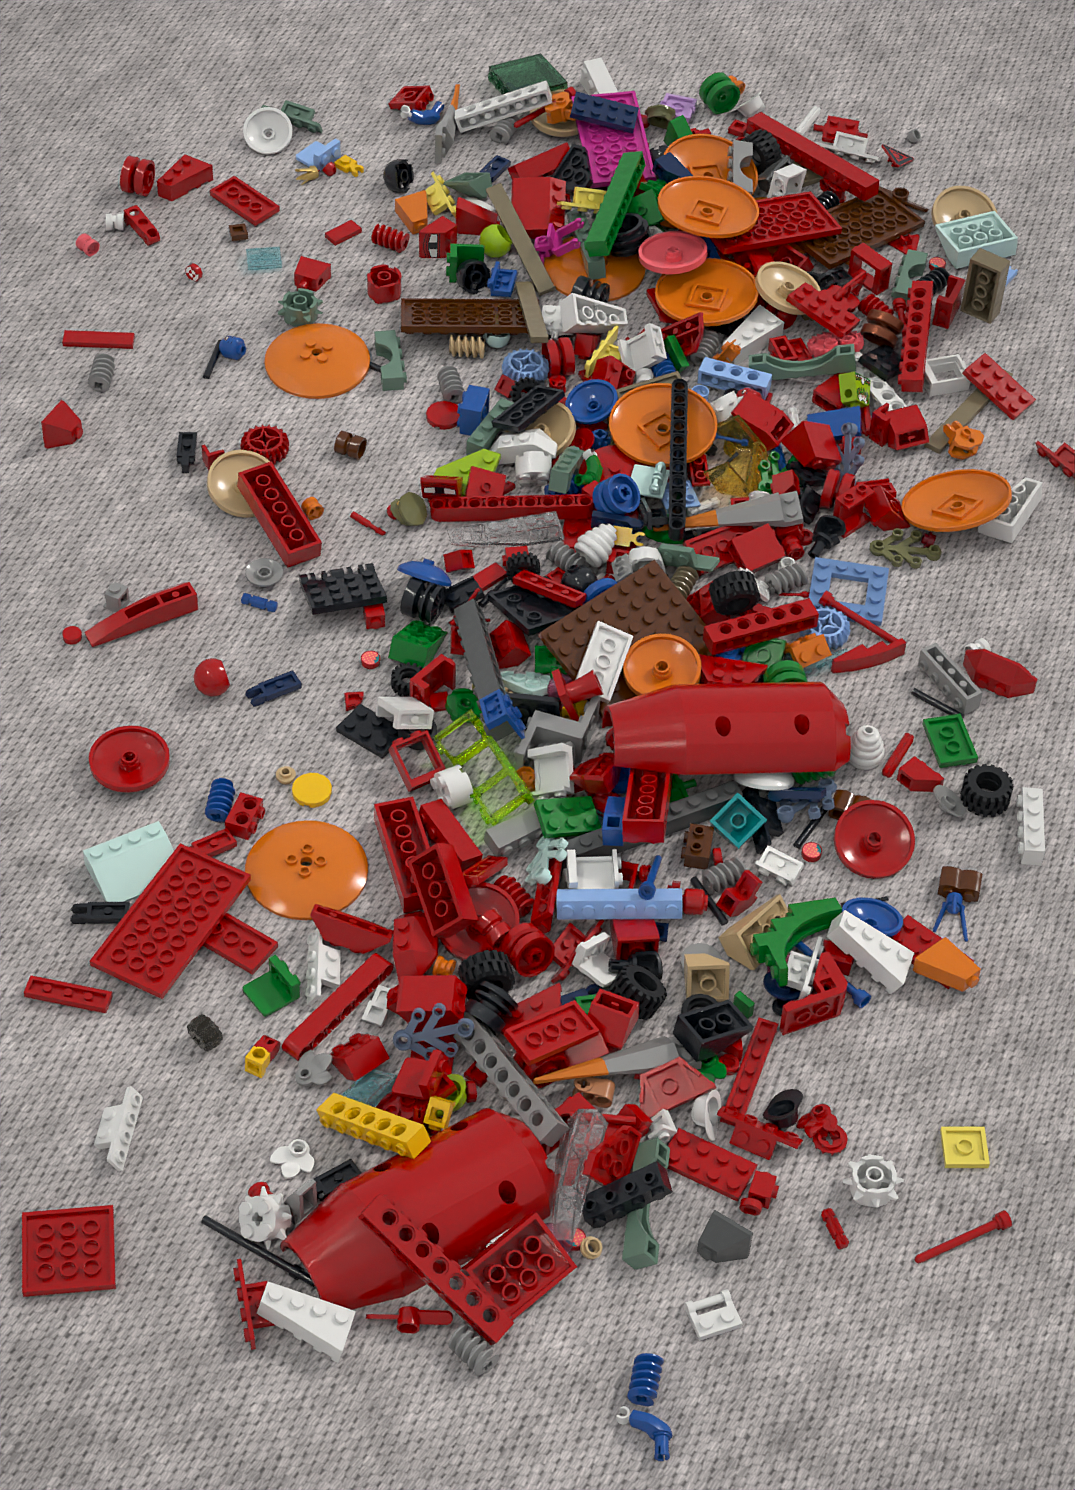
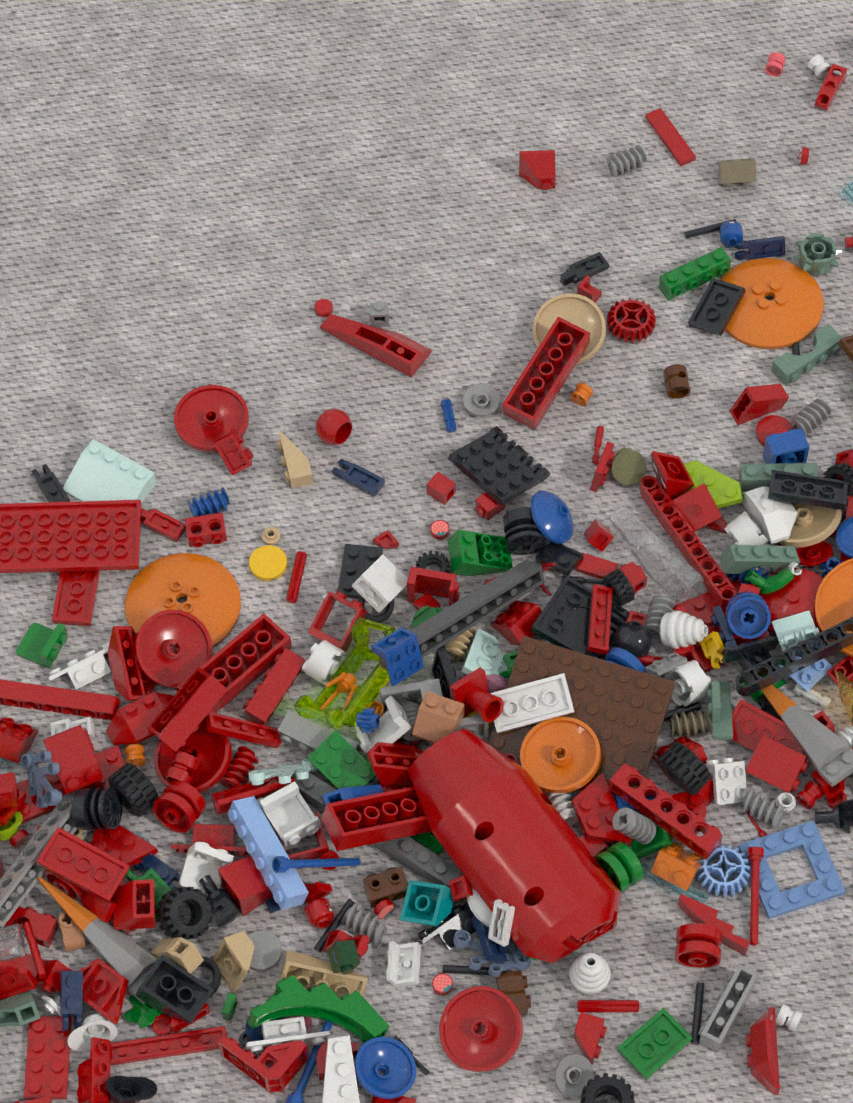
camera: 65 degrees right, 10 degrees up
(175, 314) = (737, 171): none -> dark tan brick
(182, 756) = (234, 452): none -> red bracket
(225, 723) = (296, 463): none -> tan slope
(254, 386) = (694, 273): none -> green brick
(262, 338) = (761, 248): none -> dark blue hinge
(299, 387) = (716, 306): none -> black plate
(333, 637) = (441, 488): none -> red panel
(343, 776) = (296, 577): none -> red axle
(358, 887) = (171, 647): none -> red dish
(399, 524) = (603, 467): none -> red plate
(412, 409) = (758, 401): none -> red slope
(485, 784) = (346, 683): none -> orange plant
(538, 778) = (368, 720): none -> blue gear
(580, 722) = (437, 717): none -> nougat slope
(664, 1019) = (180, 952): none -> tan slope
(670, 1113) = (71, 997): none -> dark blue hinge
(744, 786) = (460, 888): none -> red tile
(755, 647) = (634, 825): none -> light grey piece
(757, 894) = (343, 957): none -> dark green brick
(792, 753) = (504, 924): none -> white tile
(886, 669) = (698, 945): none -> red wheel

